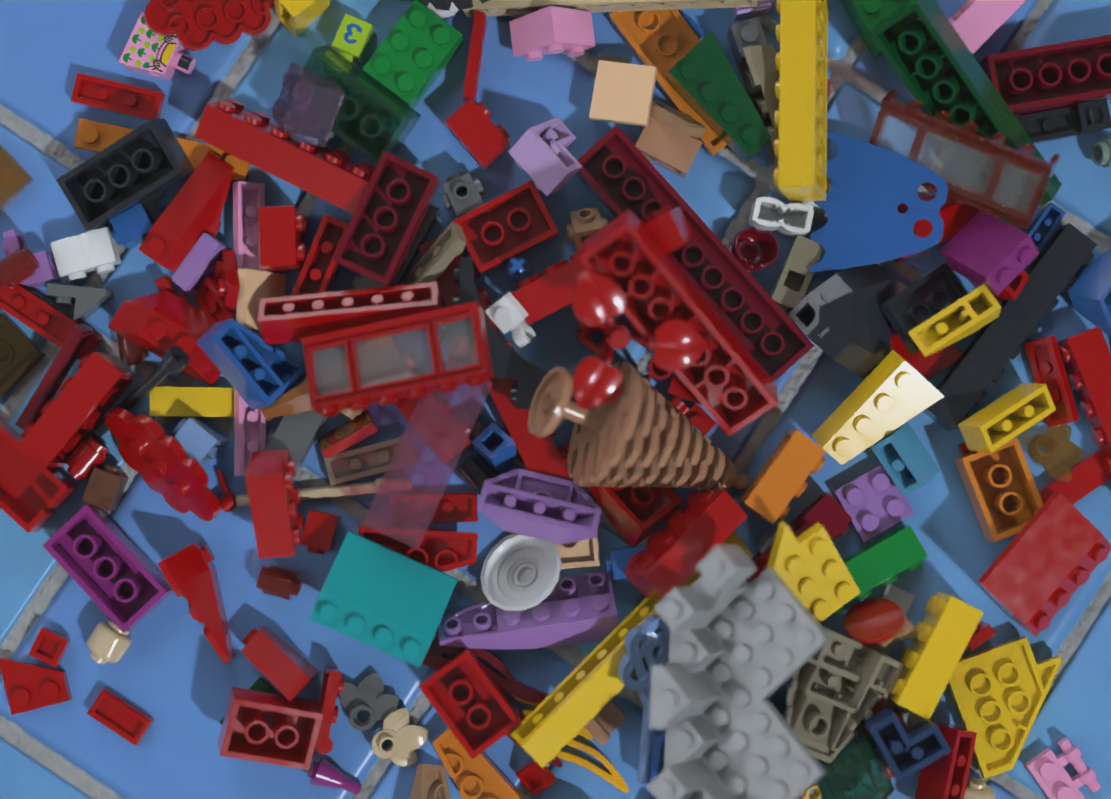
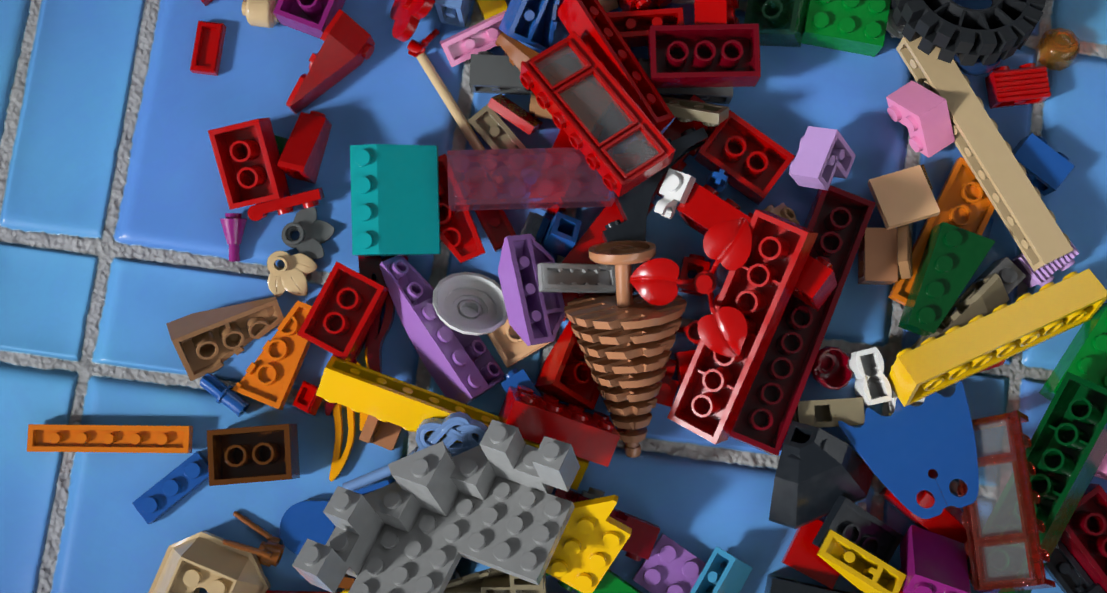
camera: 75 degrees right, 5 degrees down
(274, 503) = (431, 78): red brick -> none
(279, 582) = (371, 117): clear red brick -> none
(320, 531) = (427, 129): red brick -> none
(462, 183) = (755, 108): dark grey brick -> none
(475, 56) = (867, 68): red tile -> none
(478, 134) = (808, 99): red brick -> none
(548, 460) = (576, 278): none -> light grey plate
(783, 477) = (655, 483): orange brick -> none
(876, 408) = (753, 535): wedge -> none

